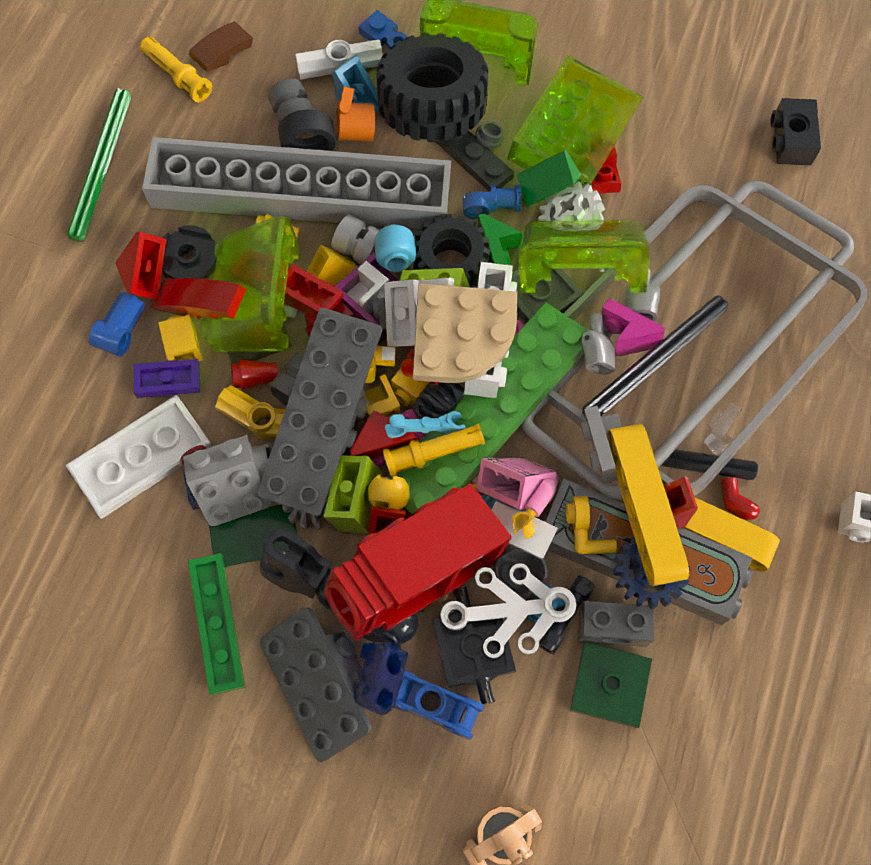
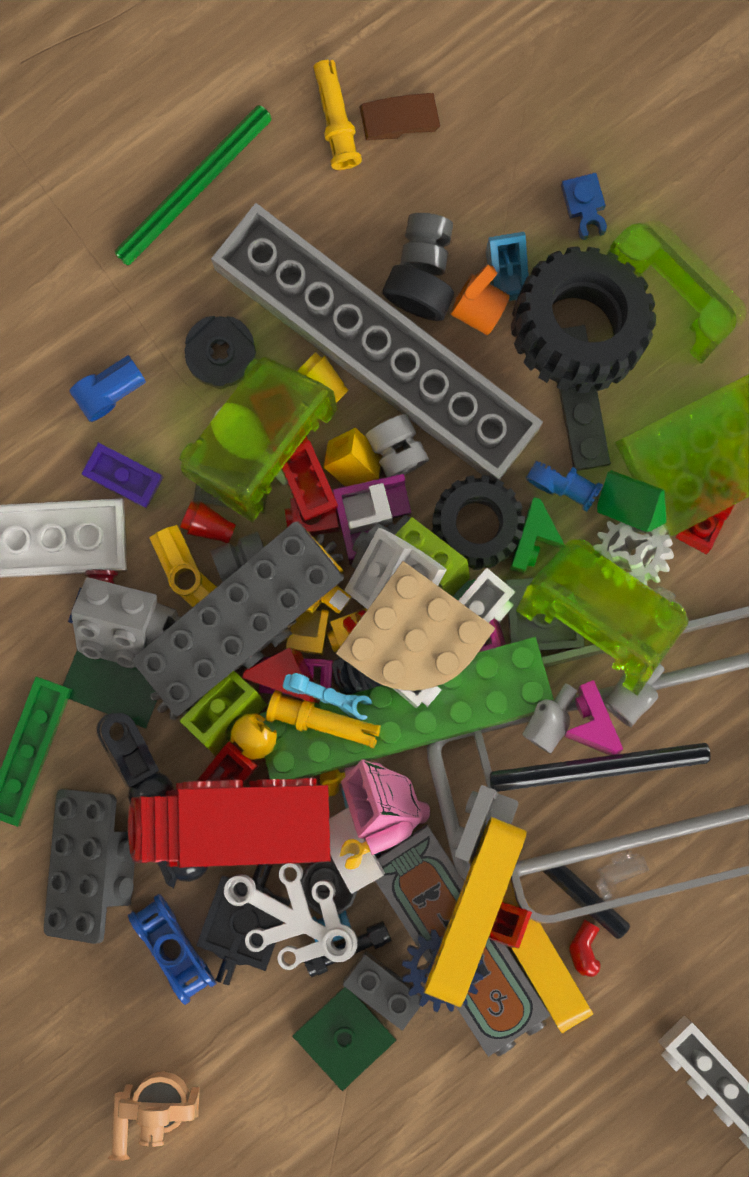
camera: 35 degrees right, 15 degrees up
(142, 265) = (163, 342): red slope -> none
(180, 338) = (158, 443): yellow brick -> none
(199, 297) = (194, 419): red slope -> none
(337, 52) = (491, 205): white piece -> none
(380, 676) = (137, 902): clear blue leg -> none
(395, 248) = (420, 487): medium azure head -> none
(490, 135) = (613, 404): dark grey plate -> none
(579, 516) = (412, 875): yellow plate -> none

